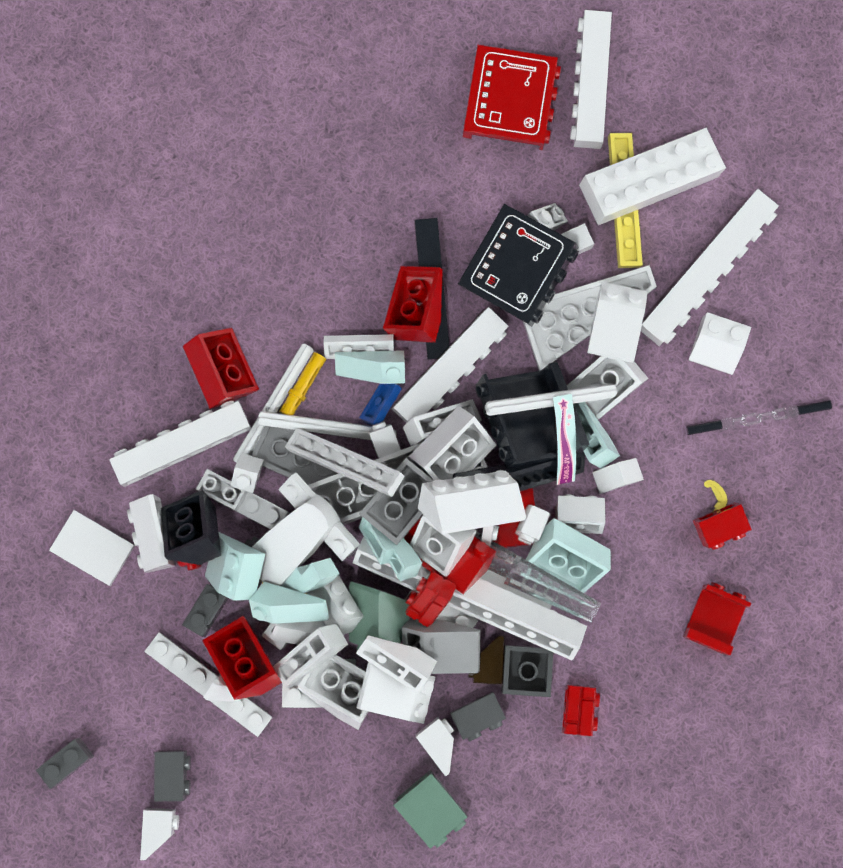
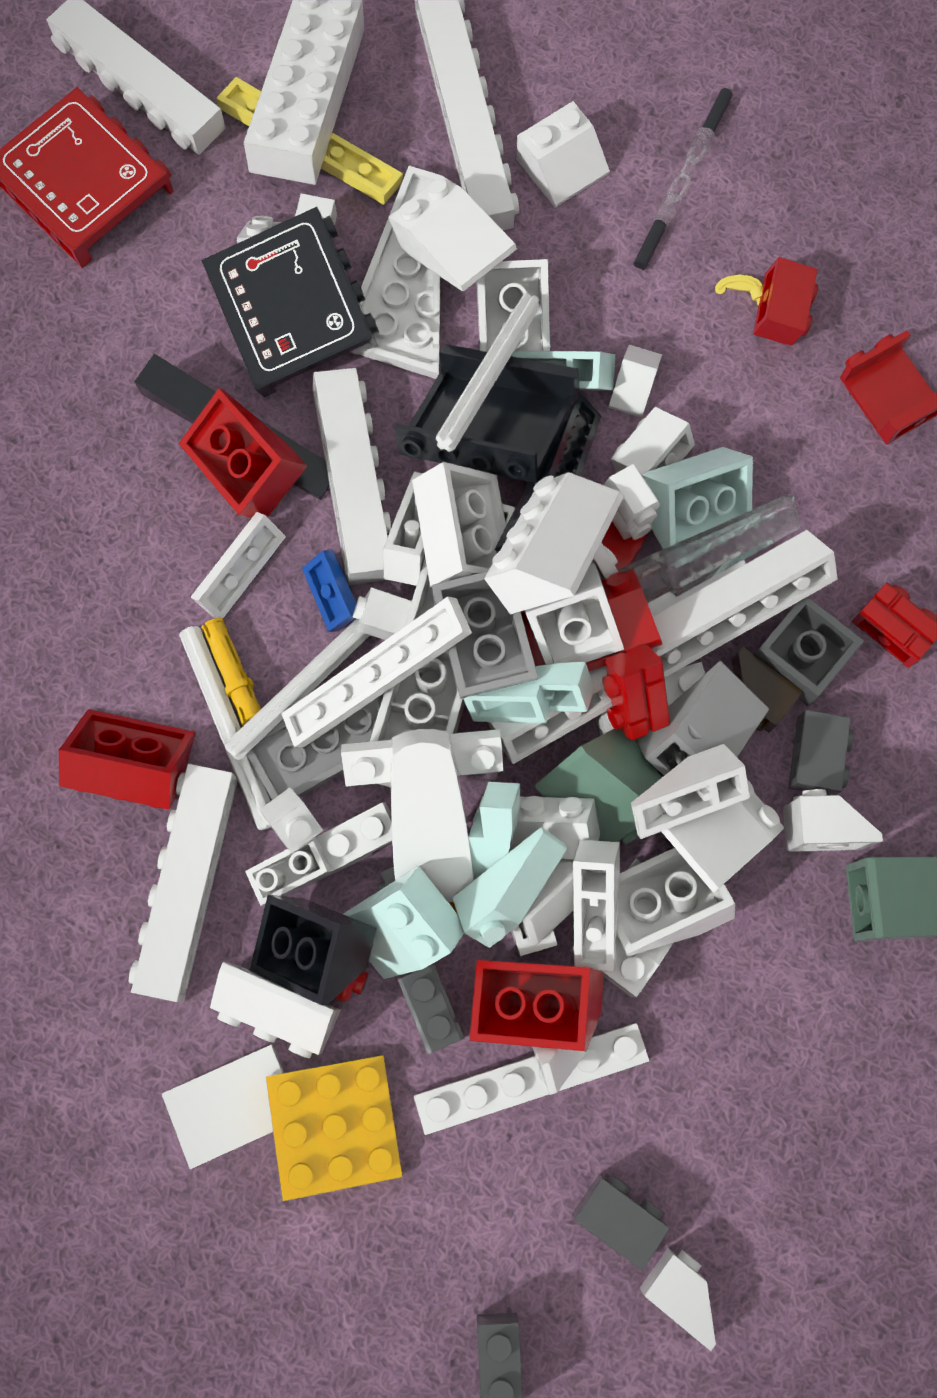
camera: 50 degrees left, 5 degrees down
(116, 604) = (333, 1127): none -> yellow plate
(372, 366) = (276, 566): light aqua slope -> none
(565, 438) = (551, 390): sticker -> none

